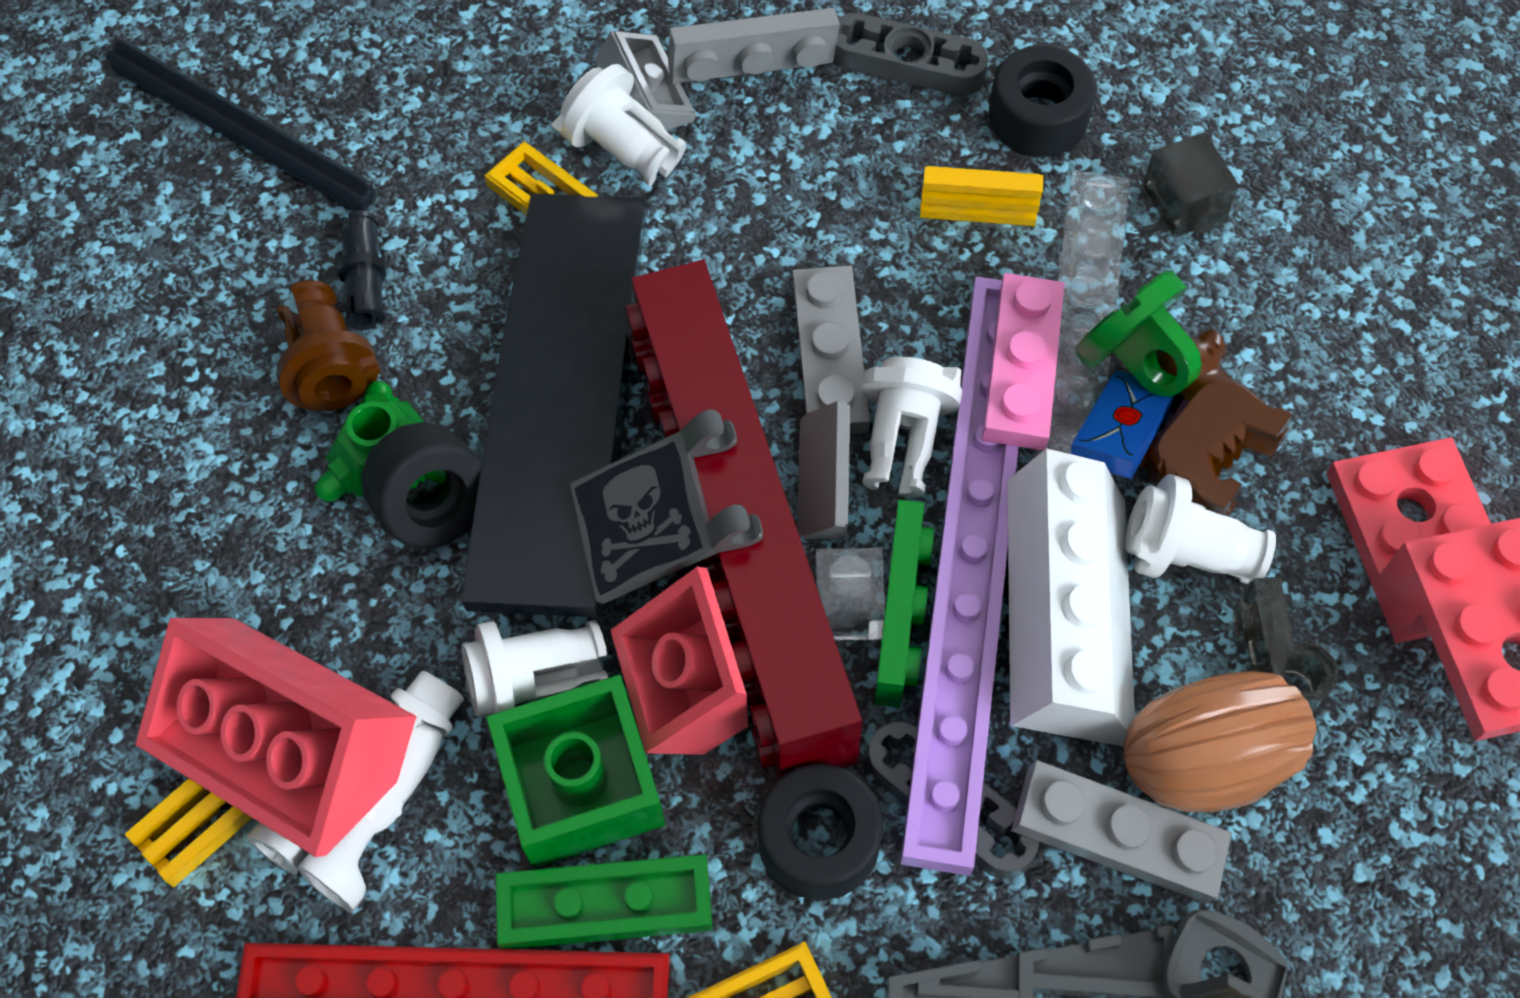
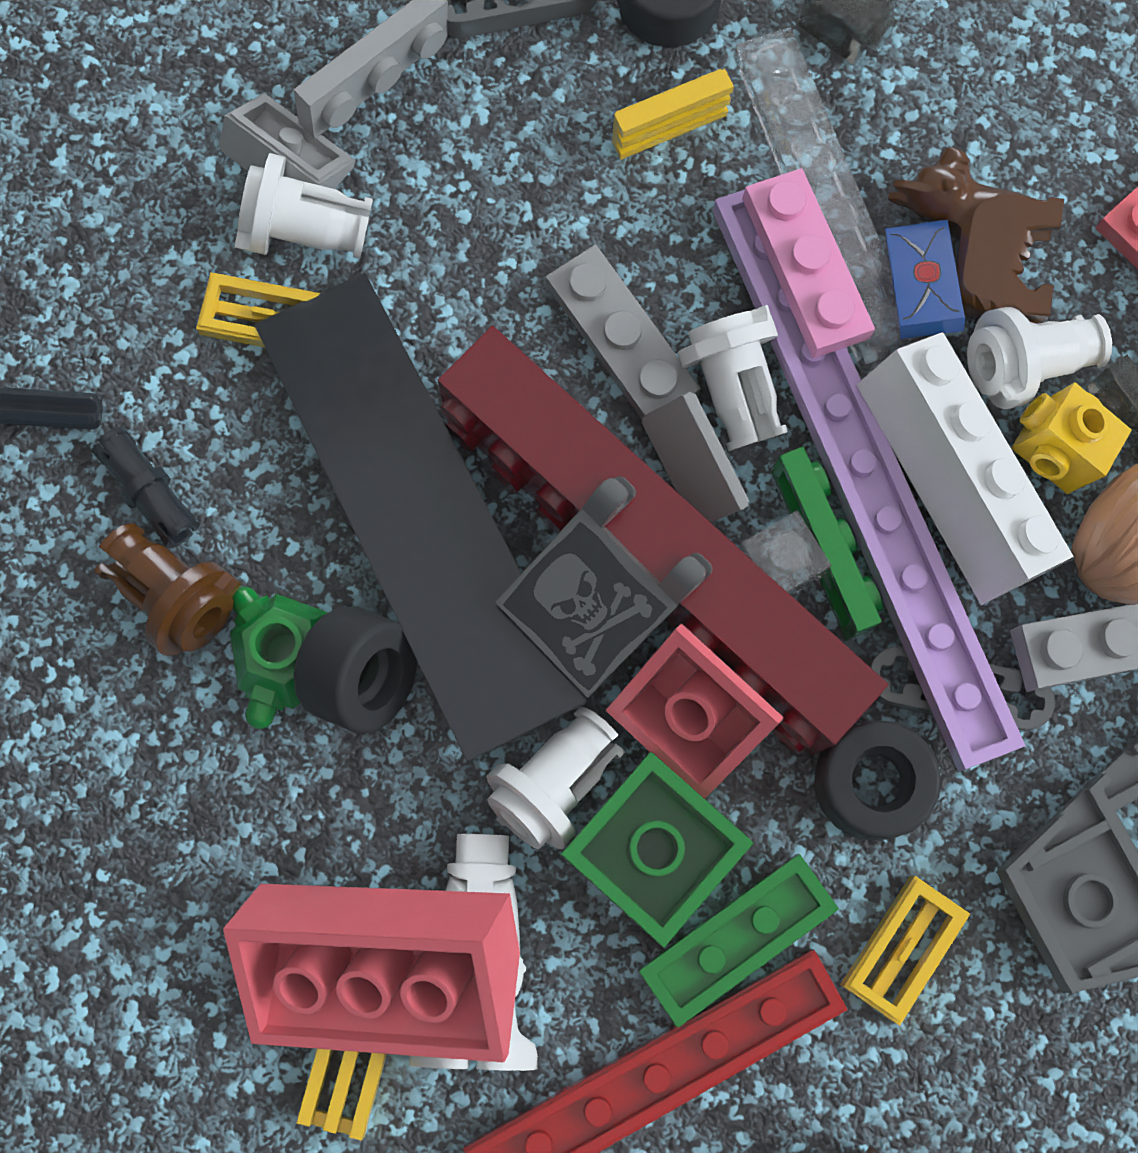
camera: 35 degrees left, 15 degrees up
(1140, 331) = (902, 186): green tile -> none
(1184, 624) = (1070, 438): none -> yellow brick

